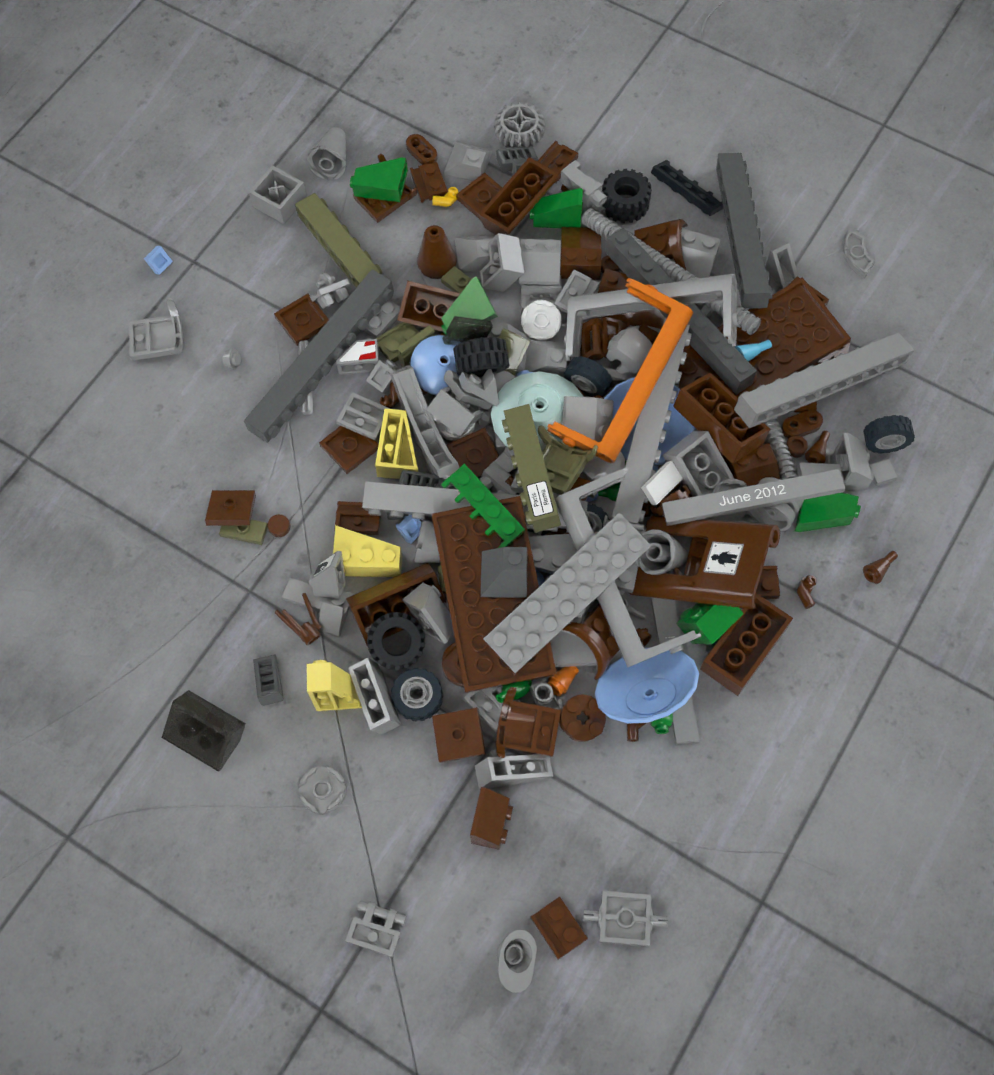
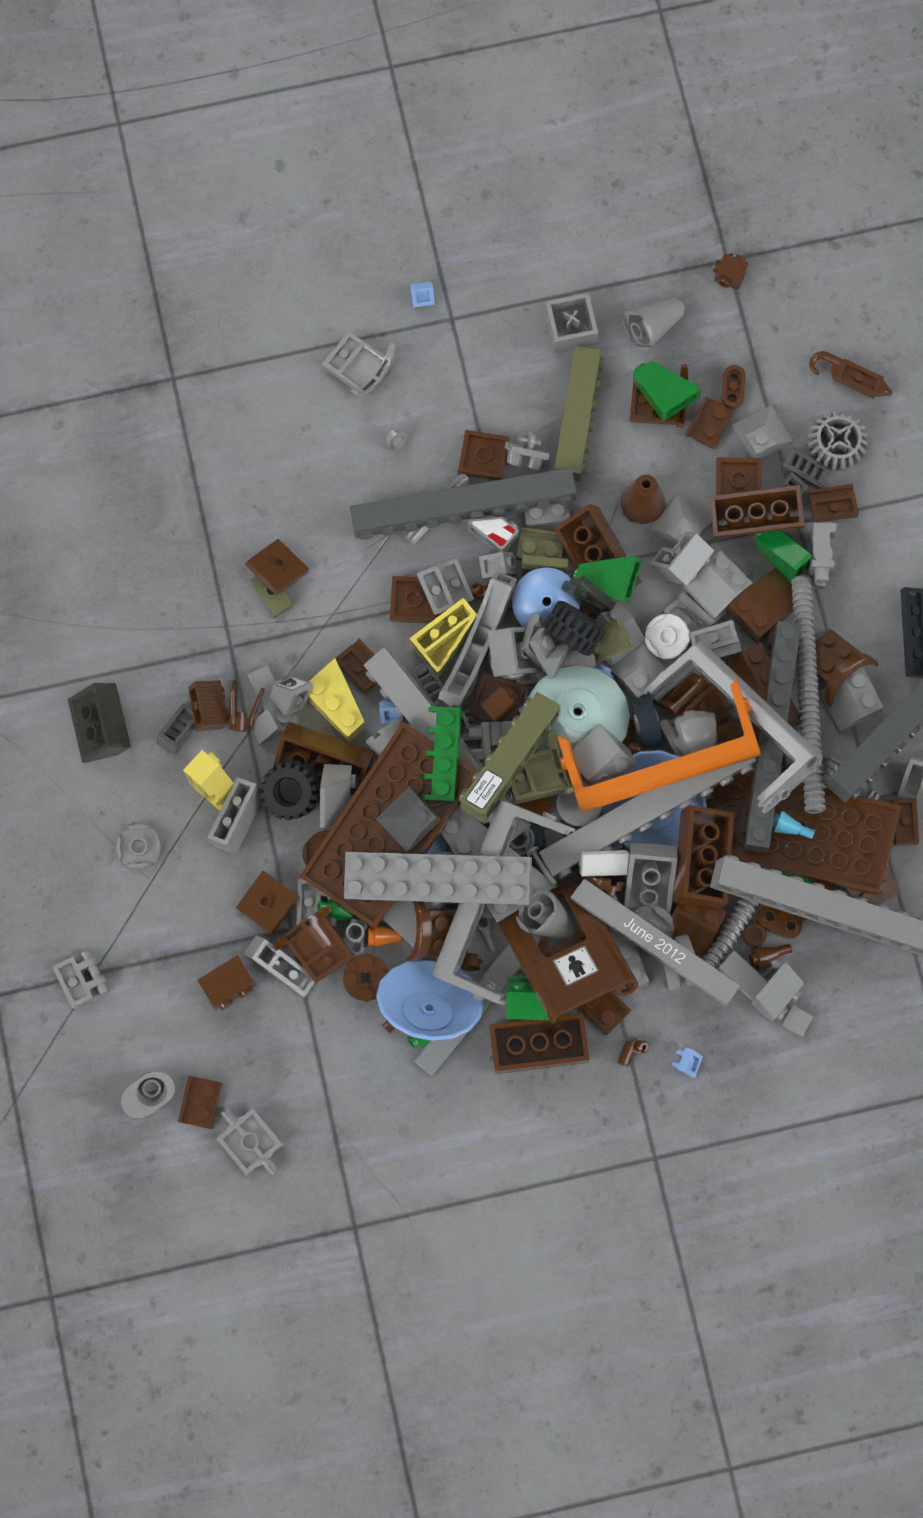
camera: 45 degrees right, 10 degrees up
(274, 641) = (208, 705): none -> reddish brown brick
(279, 525) = (299, 615): reddish brown tile -> none
(348, 89) = (730, 270): none -> reddish brown brick
(417, 708) = (261, 832): black wheel -> none
(446, 200) = (707, 454): yellow arm -> none
(455, 280) = (640, 541): olive plate -> none
(481, 448) = (500, 702): none -> reddish brown brick
(487, 85) = (852, 375): none -> reddish brown plate
(631, 184) = (854, 574): black tyre -> none
(827, 512) = (725, 1018): green slope -> none
(851, 562) = (689, 1062): none -> light blue tile
(876, 570) = (702, 1089): reddish brown cone -> none
(889, 434) = (829, 997): black wheel -> none

